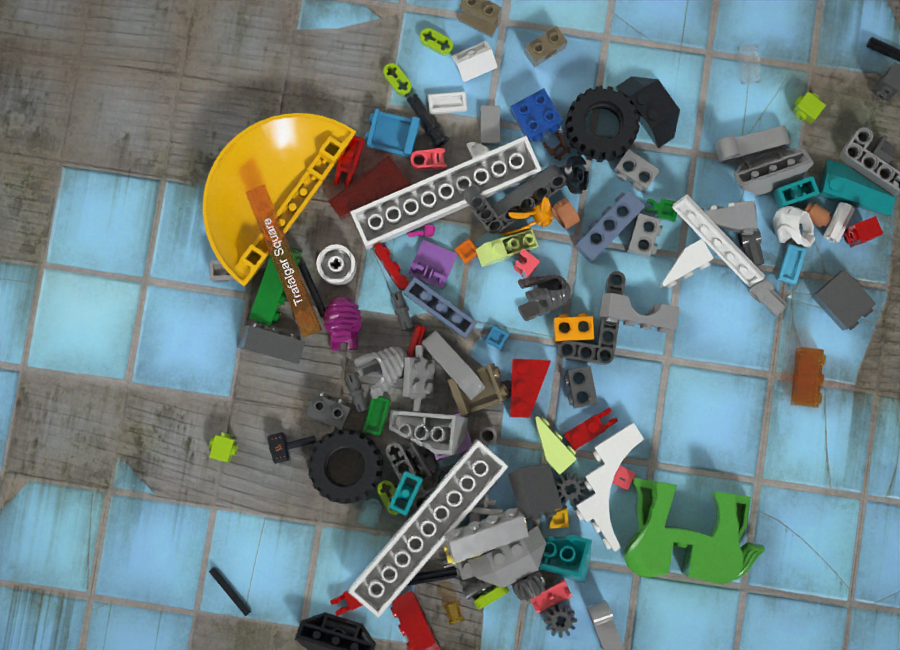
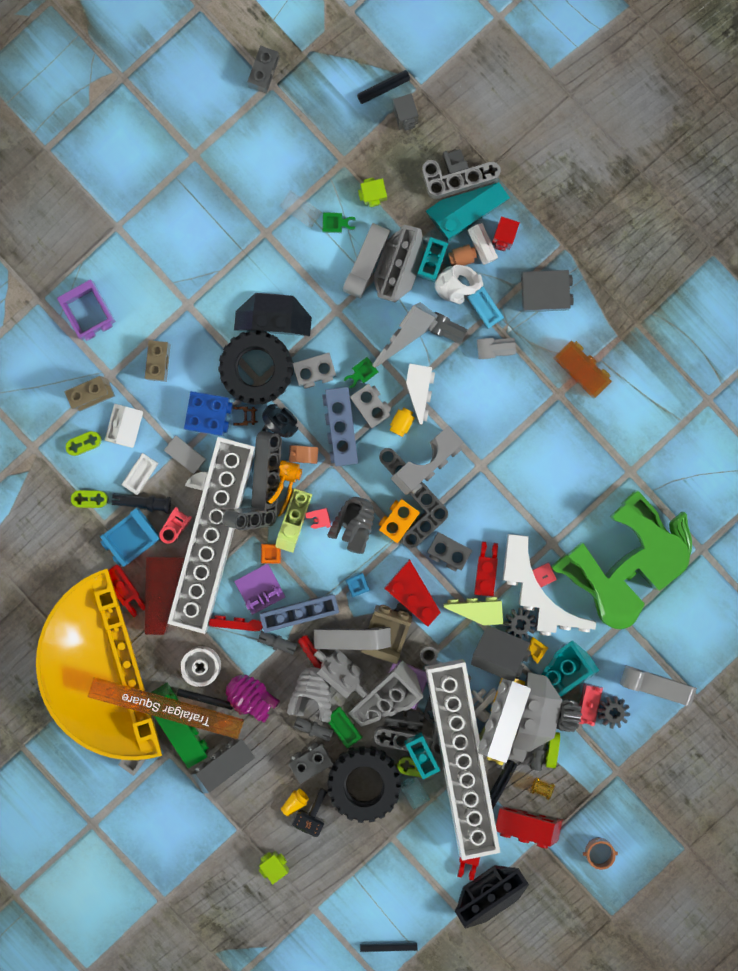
camera: 50 degrees left, 5 degrees up
(287, 424) = (295, 802): none -> yellow cone
(428, 231) = (230, 571): dark pink hand -> none
(651, 270) = (402, 421): none -> yellow brick
(718, 241) = (421, 353): white tile -> none
(760, 97) = (334, 223): none -> green plate

